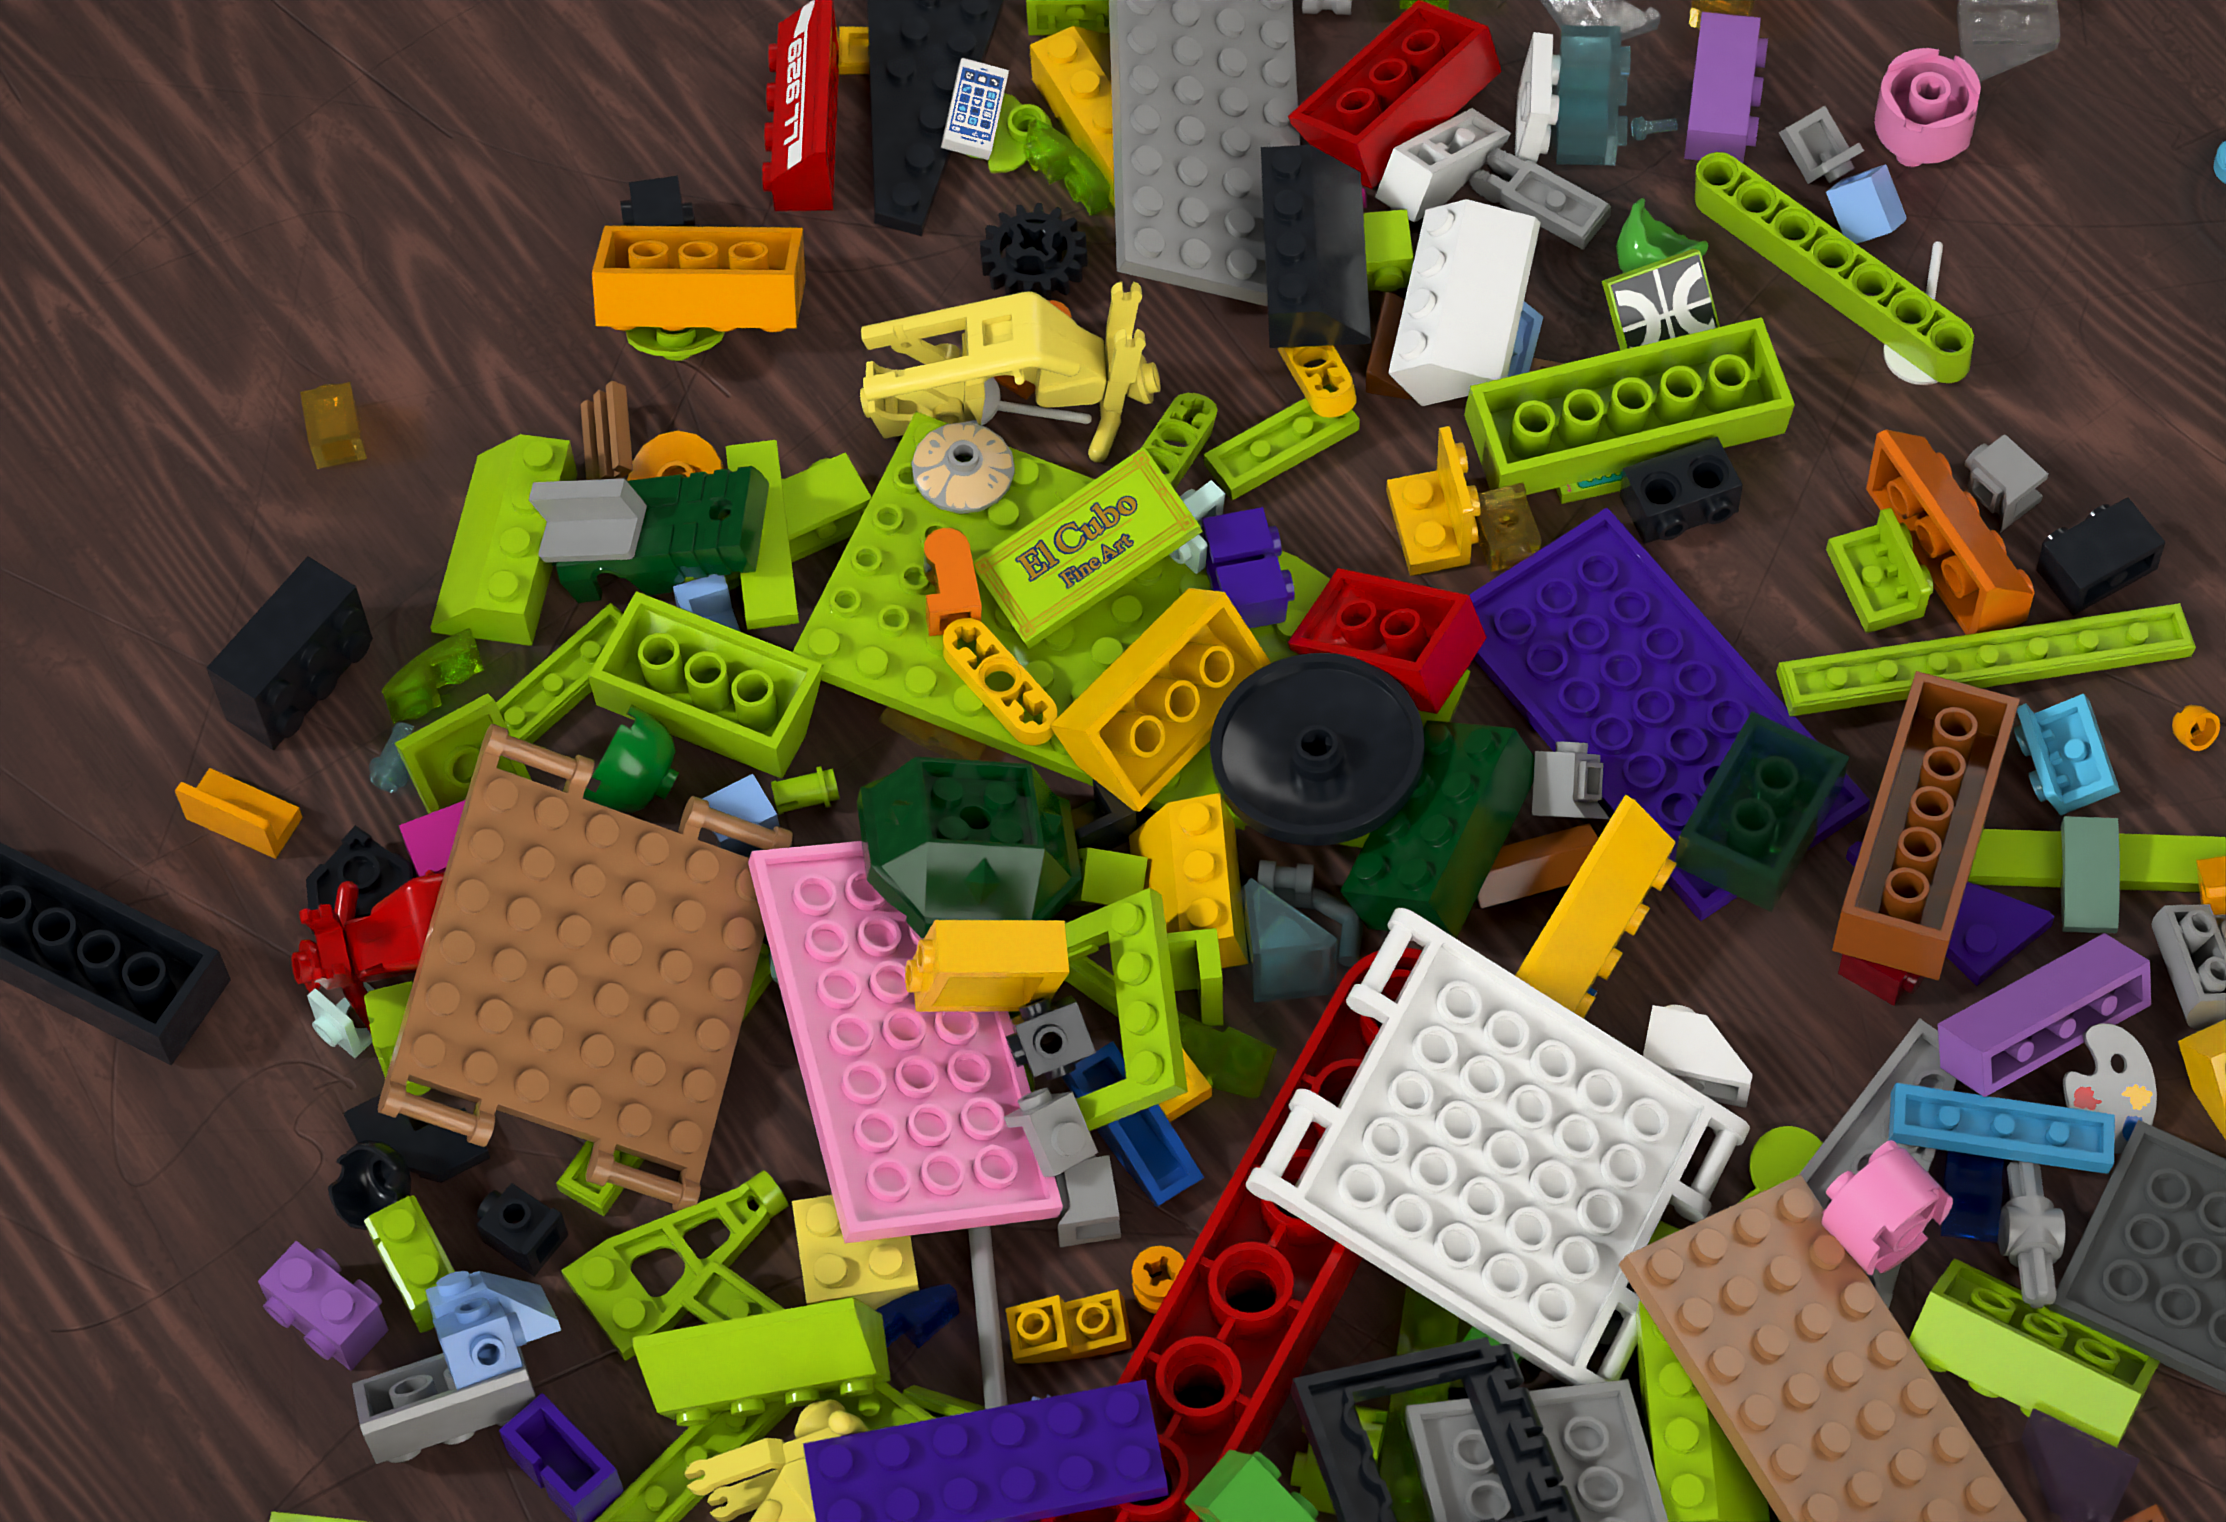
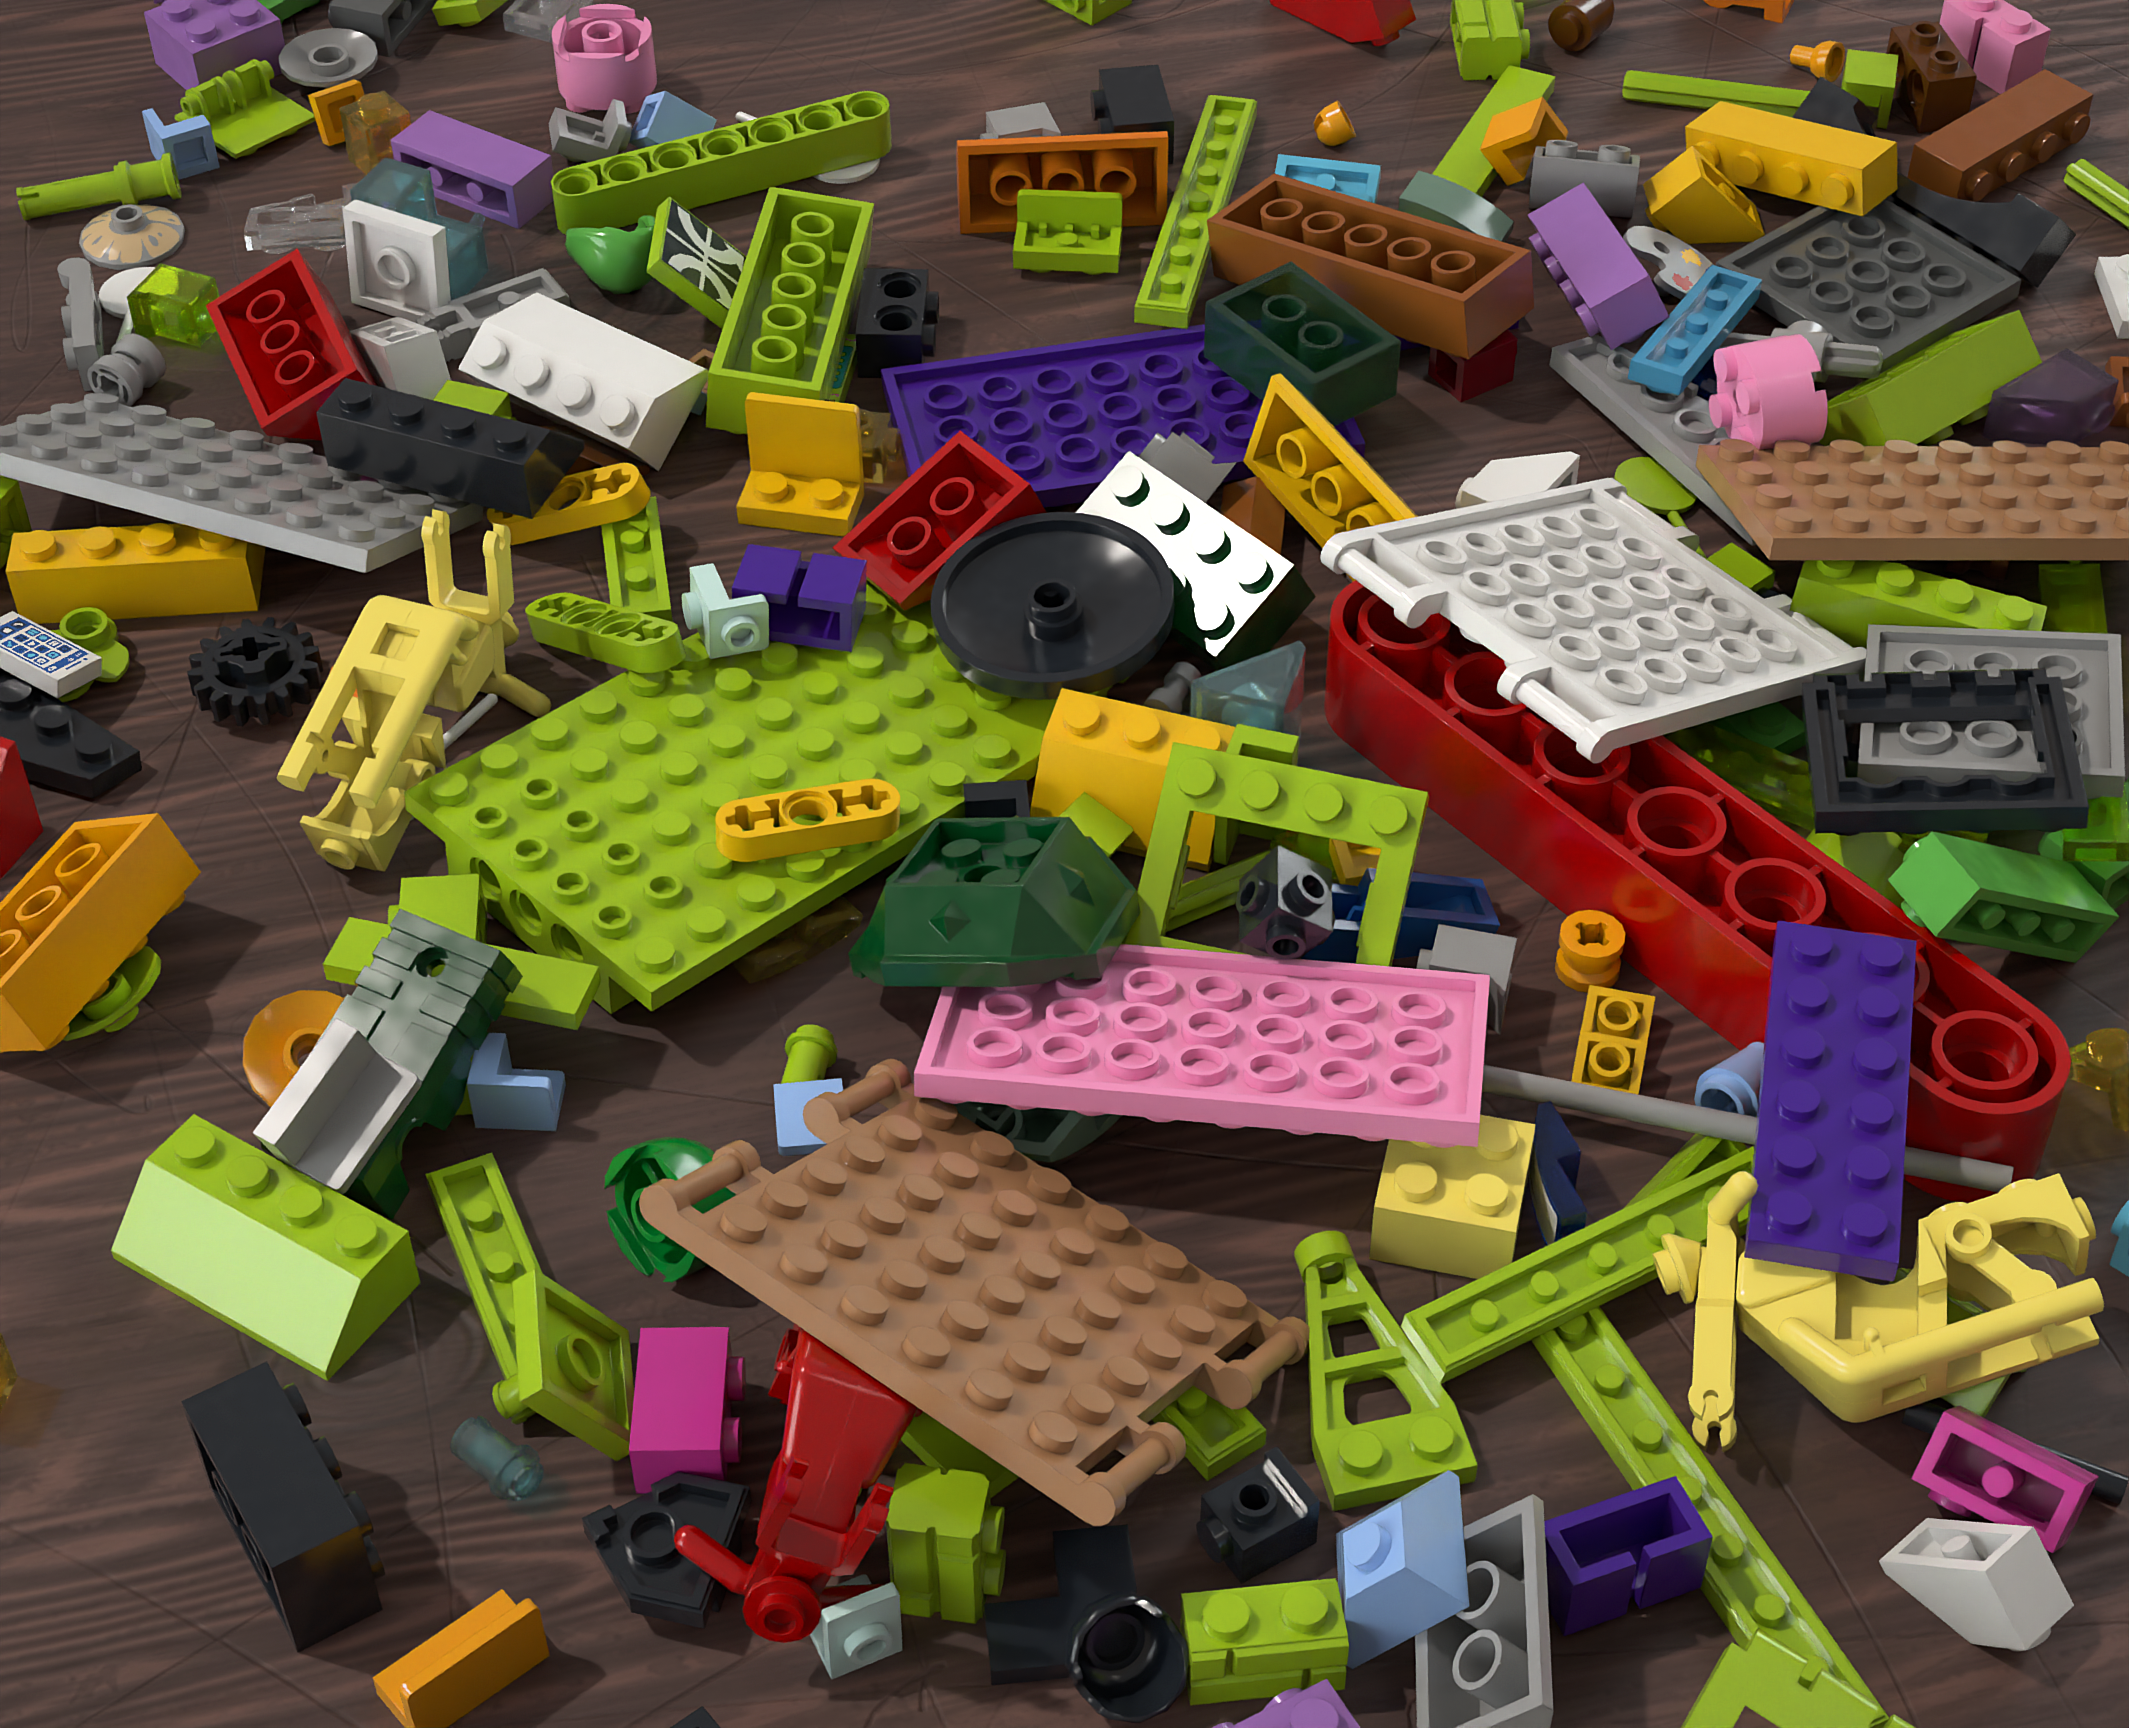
camera: 70 degrees left, 15 degrees down
(414, 688) = (417, 1400): clear neon green slope -> none
(479, 1341) = (1472, 1539): medium blue brick -> none
(607, 434) = (143, 1095): medium nougat tile -> none
(708, 683) = (639, 1072): lime slope -> none
(764, 1360) = (1589, 1280): lime slope -> none
(952, 572) = (662, 809): orange leg -> none
(963, 485) = (512, 769): tan dish -> none
(987, 964) = (1191, 905): yellow window -> none
(1053, 1130) = (1396, 931): light grey bracket -> none
(1061, 158) = (155, 605): clear neon green slope -> none
(1086, 547) = (701, 688): lime tile -> none
(1160, 697) = (910, 700): yellow slope -> none

